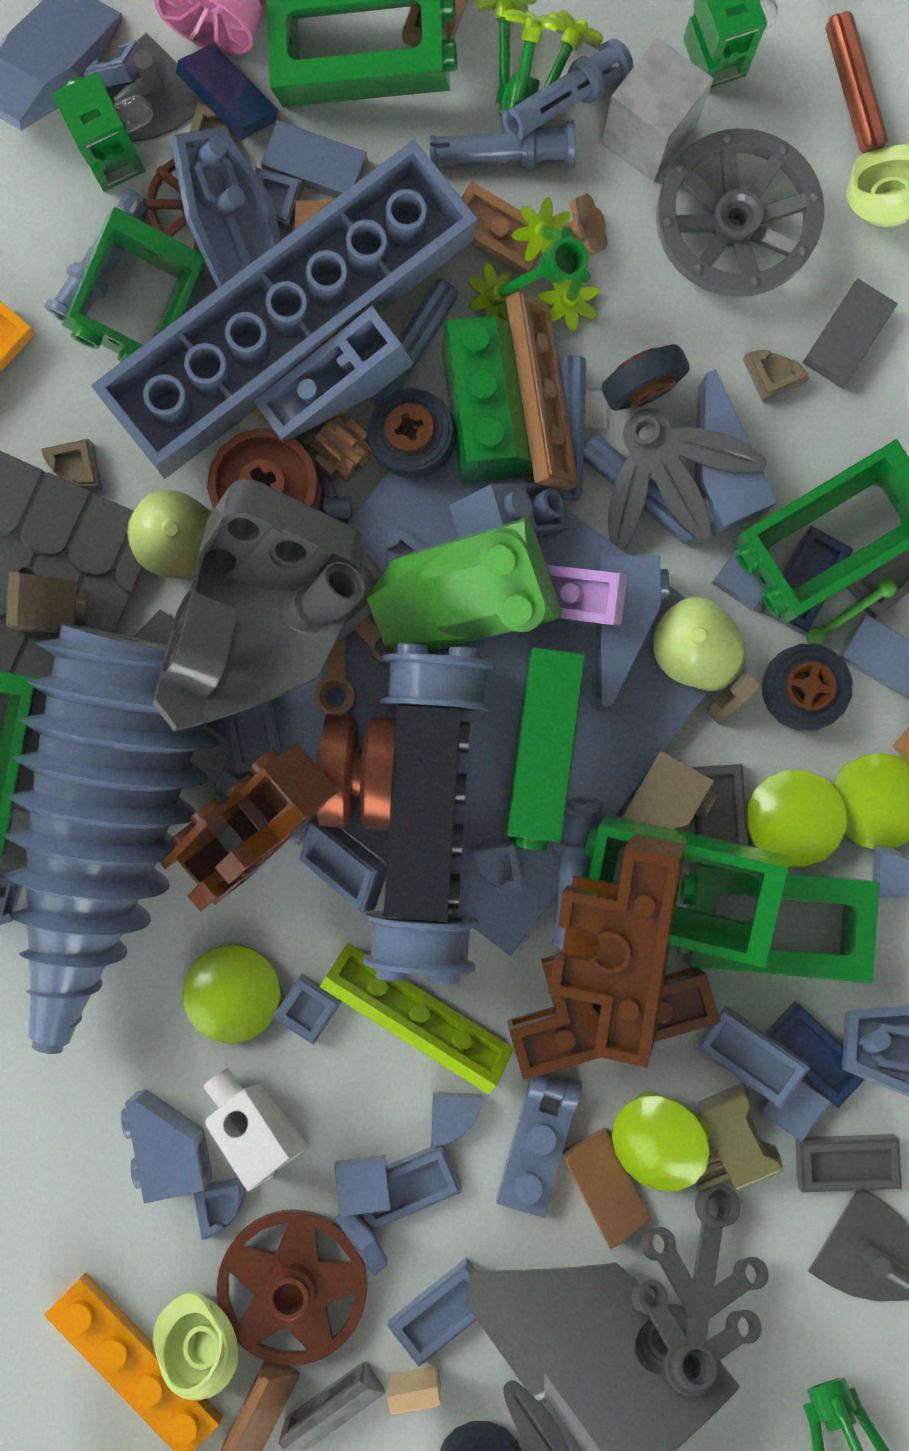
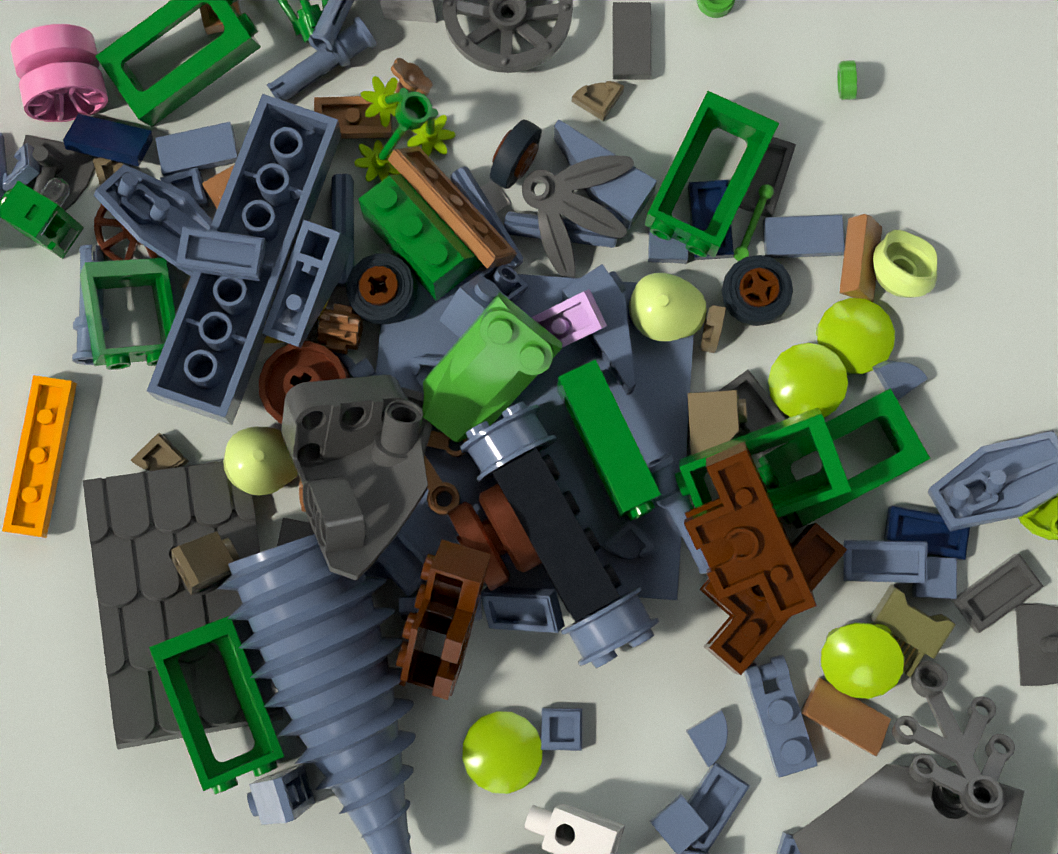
camera: 30 degrees left, 5 degrees down
(260, 286) = (221, 253): none -> sand blue tile
(419, 1020) = (642, 684): lime plate -> none

